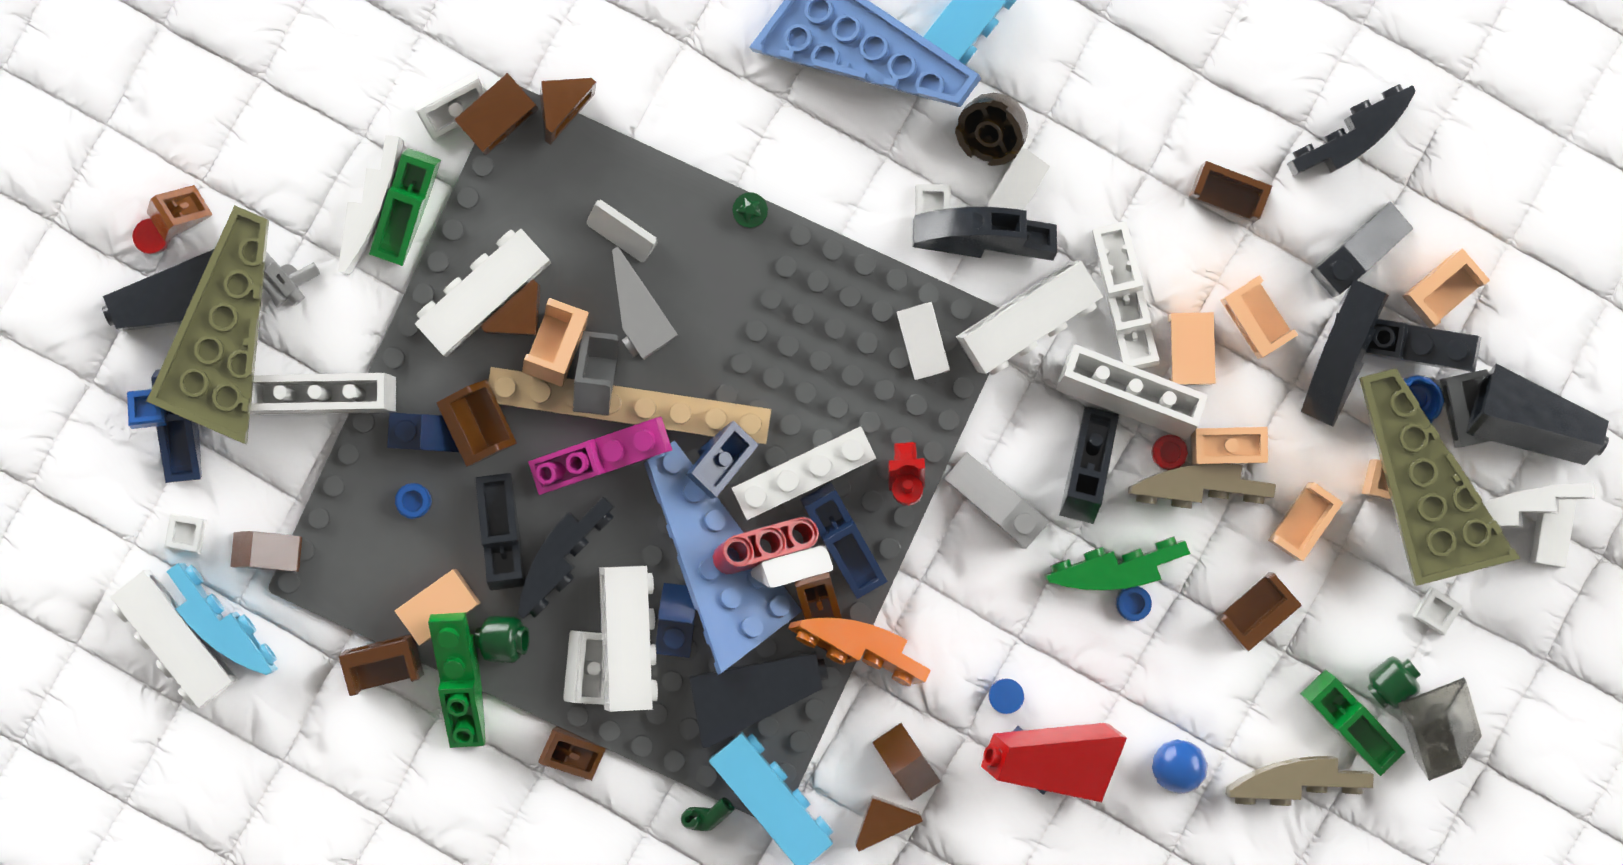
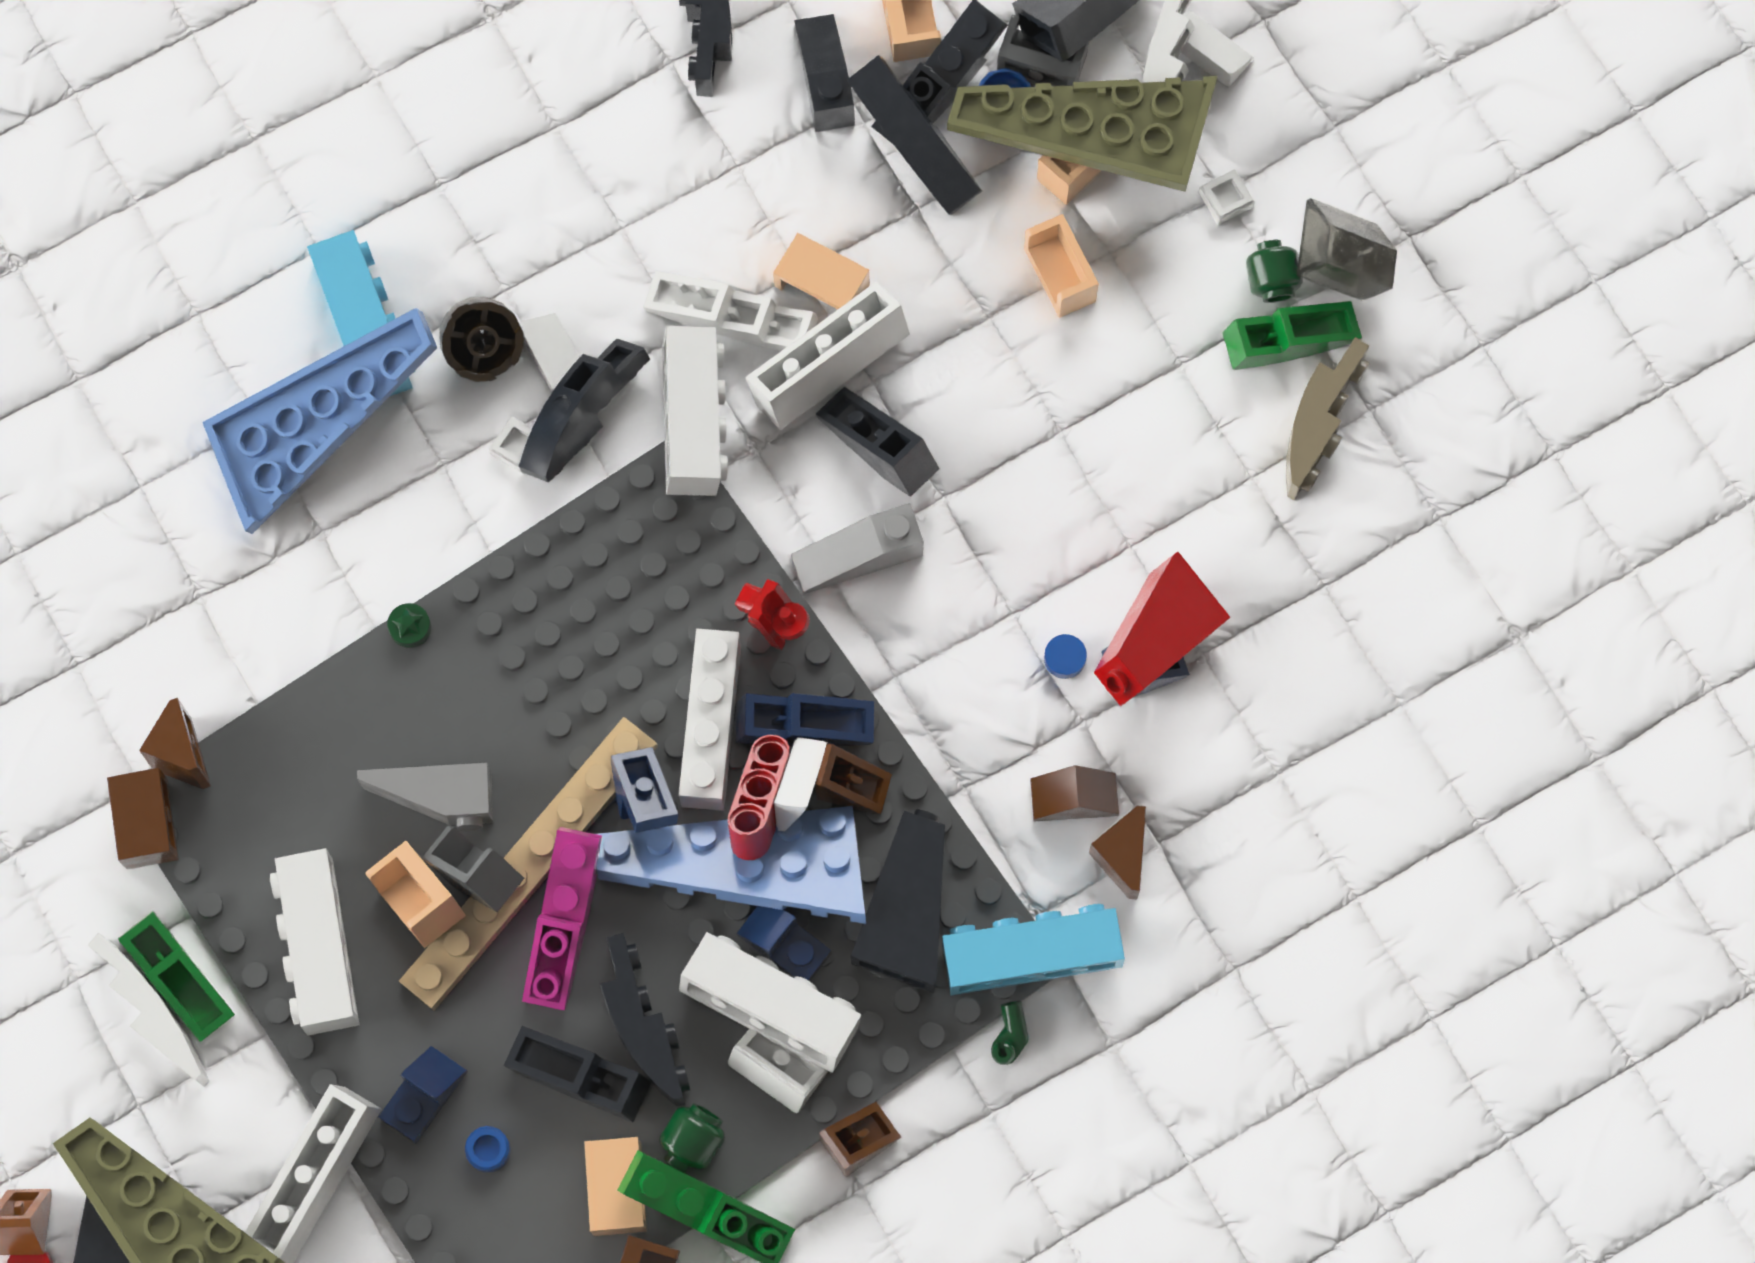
camera: 60 degrees left, 15 degrees down
(284, 280) = (171, 1150): light grey piece -> none
(442, 107) = (103, 878): white slope -> none
(476, 422) = (446, 1027): reddish brown panel -> none
(517, 315) = (363, 920): reddish brown slope -> none
(621, 231) = (338, 764): white slope -> none
(850, 640) = (912, 767): orange slope -> none
(923, 341) = (650, 526): white slope -> none
(1103, 571) = (997, 483): green slope -> none
(1133, 603) = (1044, 479): blue tile -> none
(1169, 452) = (912, 359): red tile -> none
(1180, 766) = (1239, 526): blue hair -> none
(1187, 484) = (955, 353): dark tan slope -> none
(1229, 445) = (941, 294): light nougat panel -> none
(1230, 191) = (689, 155): reddish brown panel -> none
(1257, 318) = (830, 203): light nougat panel -> none
(1259, 611) = (1125, 360): reddish brown panel -> none

